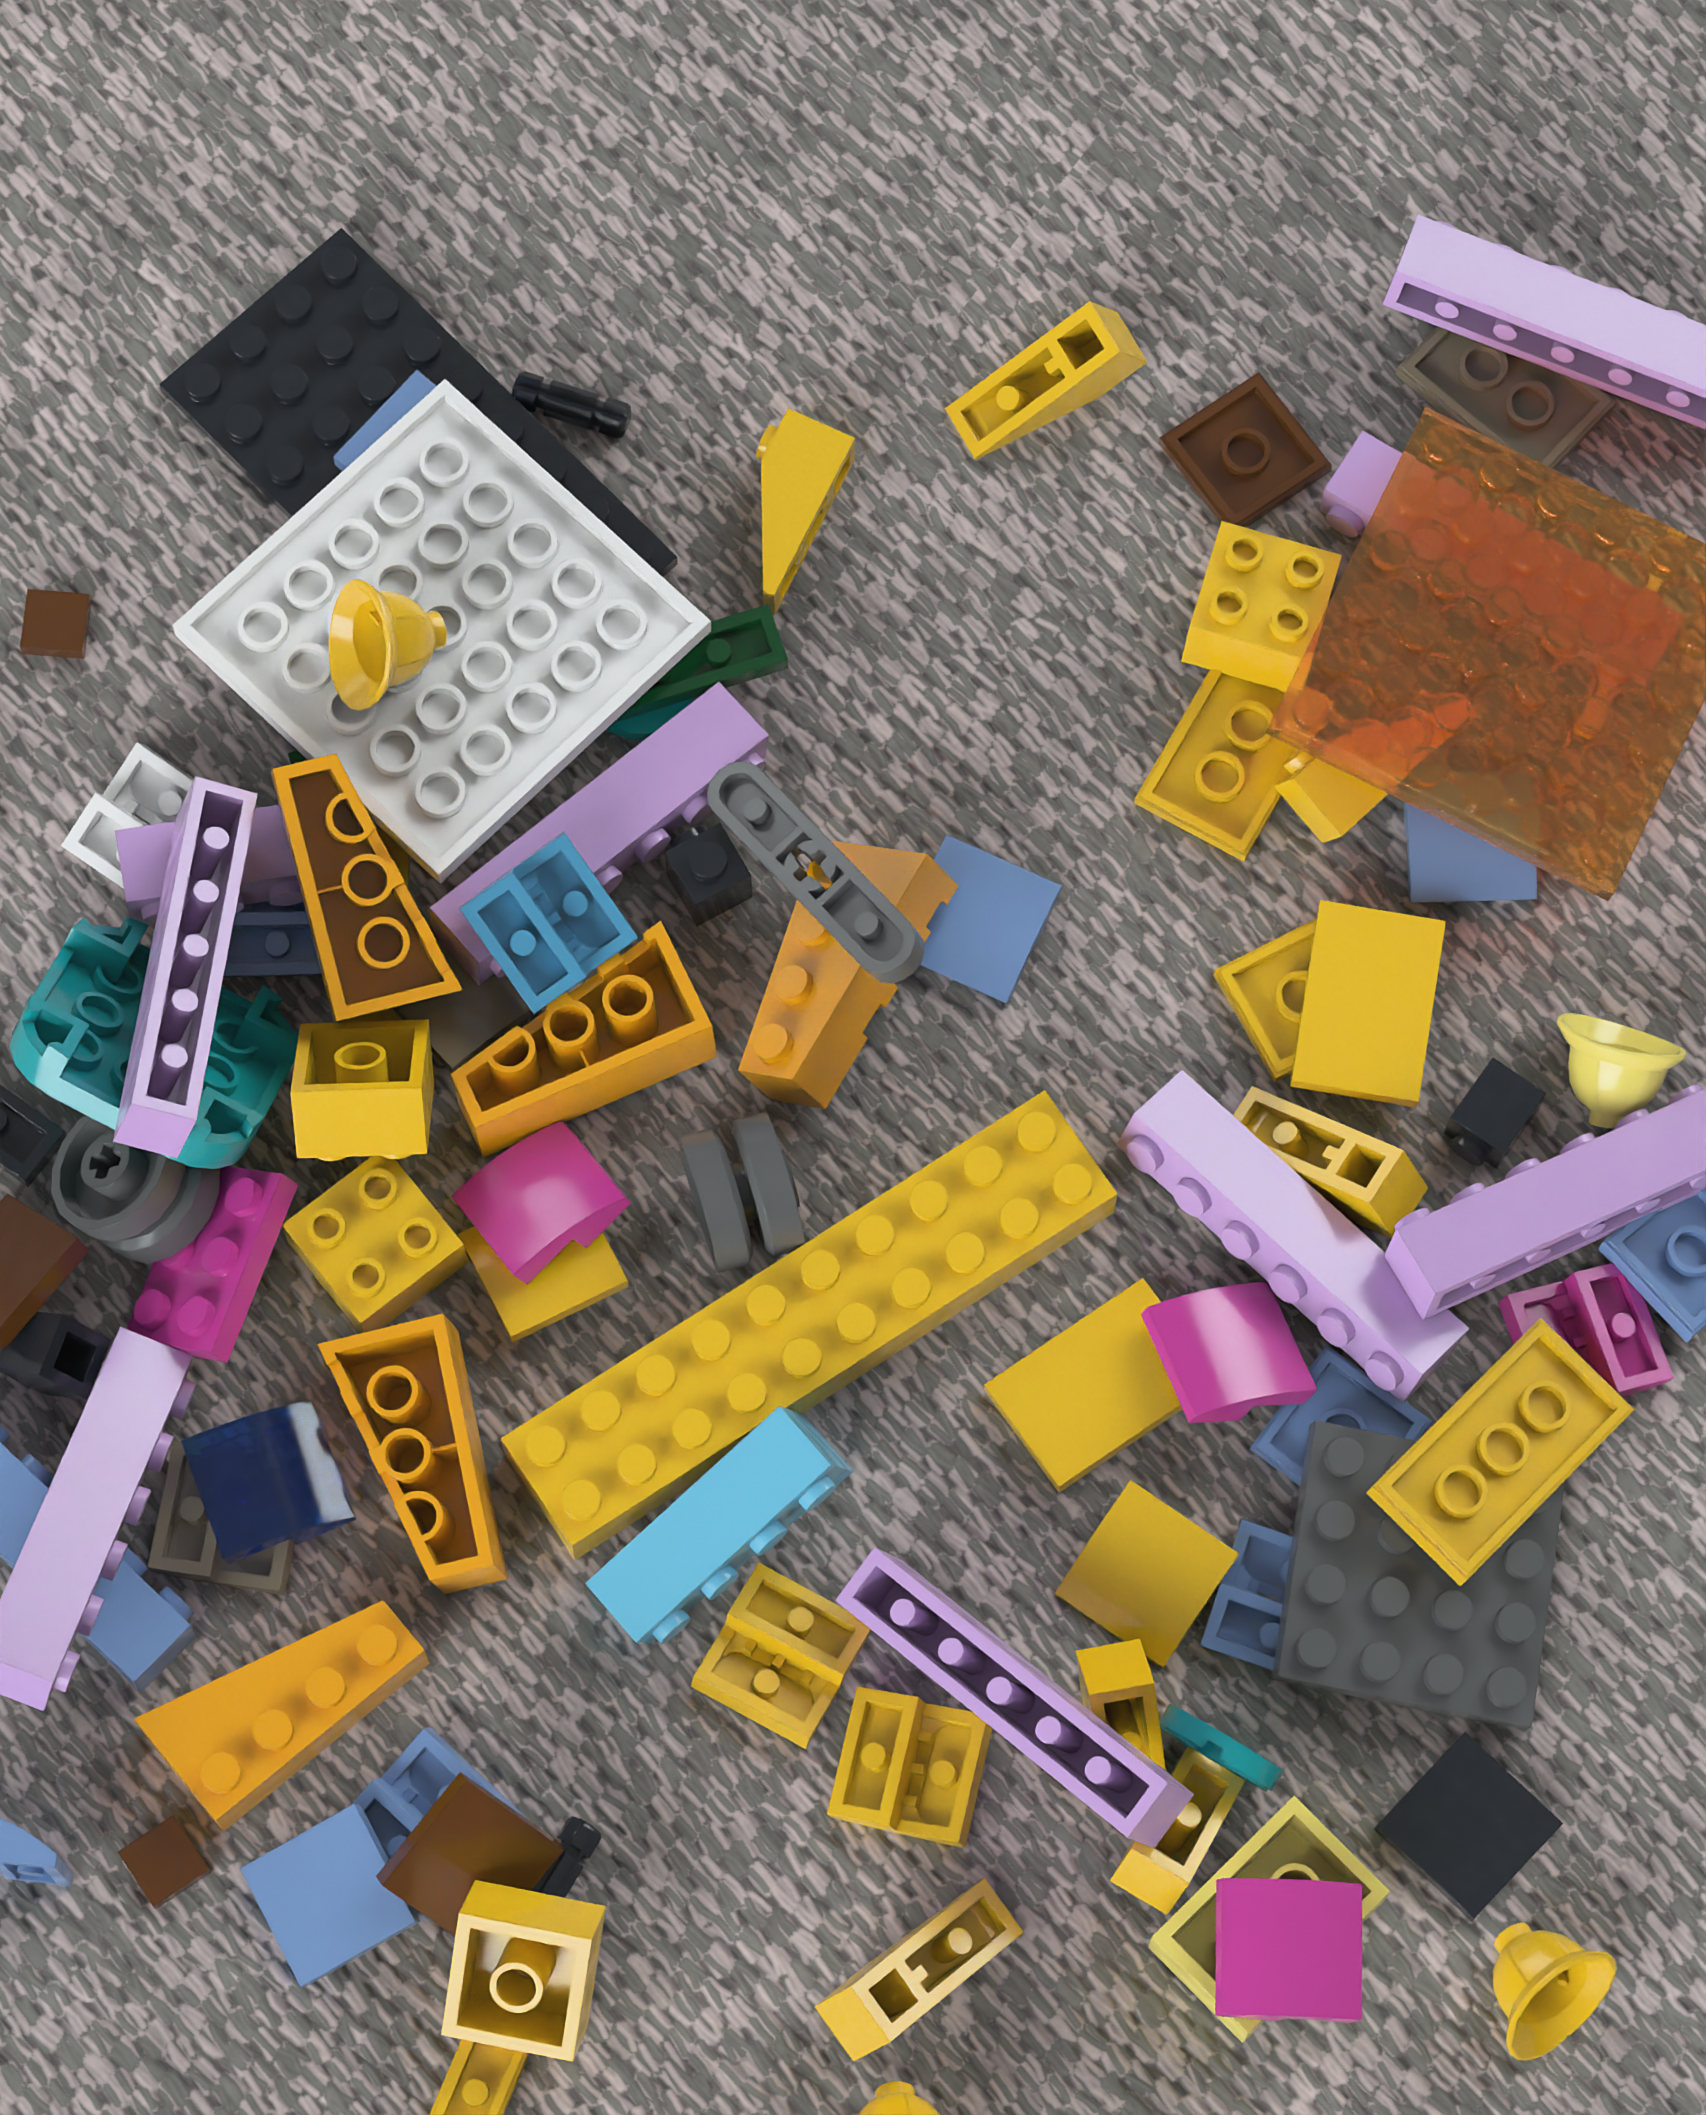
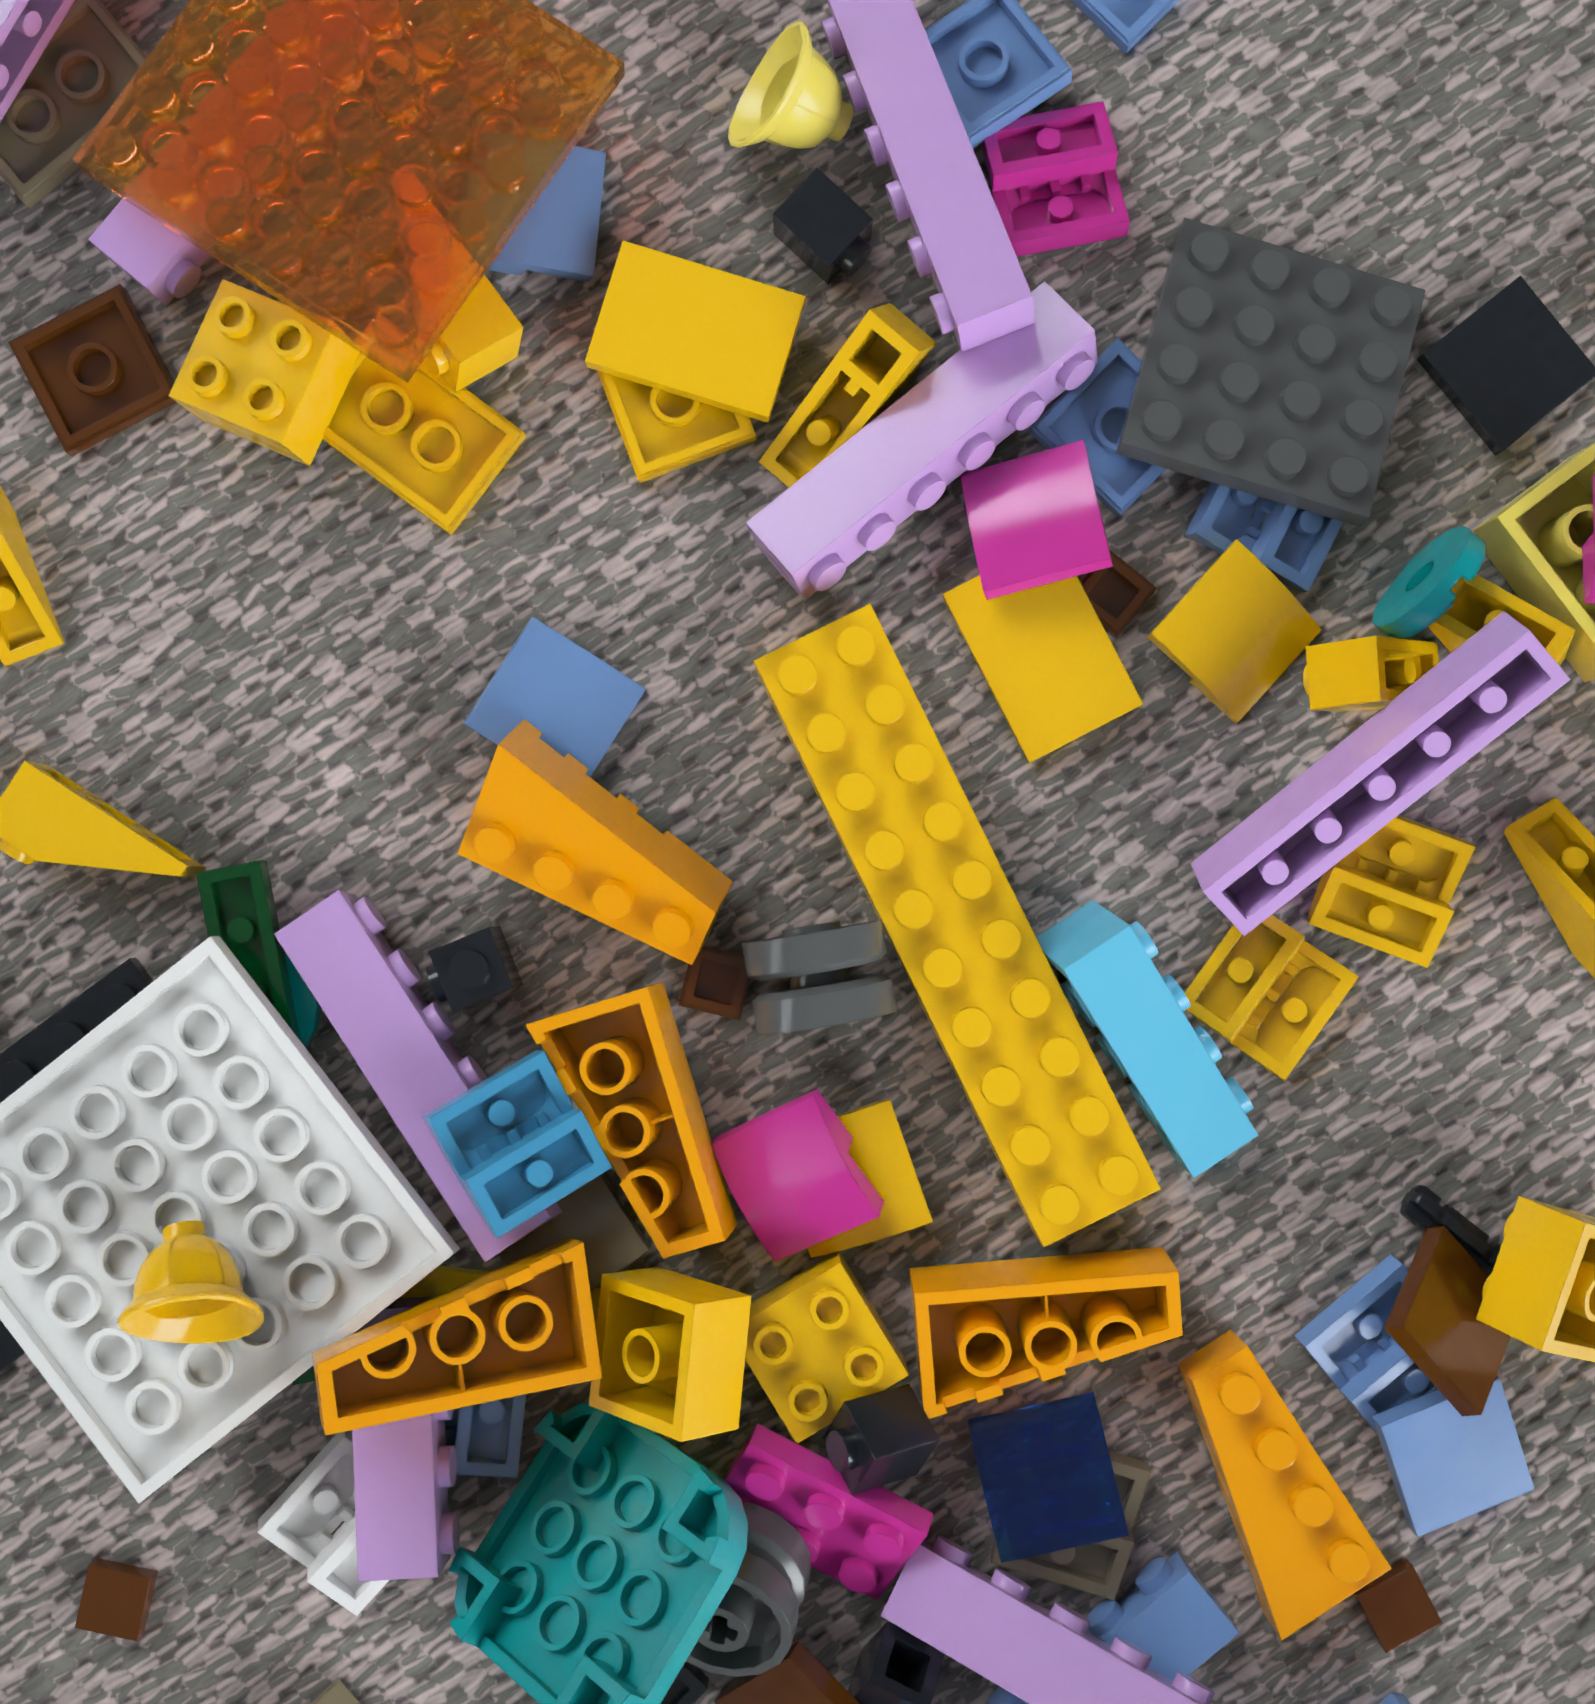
camera: 85 degrees left, 15 degrees up
(185, 968) = (536, 1548): lavender brick -> none
(295, 1301) = (880, 1438): none -> black brick
(719, 1102) = (716, 983): none -> reddish brown tile
(851, 907) = (547, 828): dark grey piece -> none
(1170, 1452) = (1117, 594): none -> reddish brown tile
(1500, 1451) = (1171, 271): yellow tile -> none

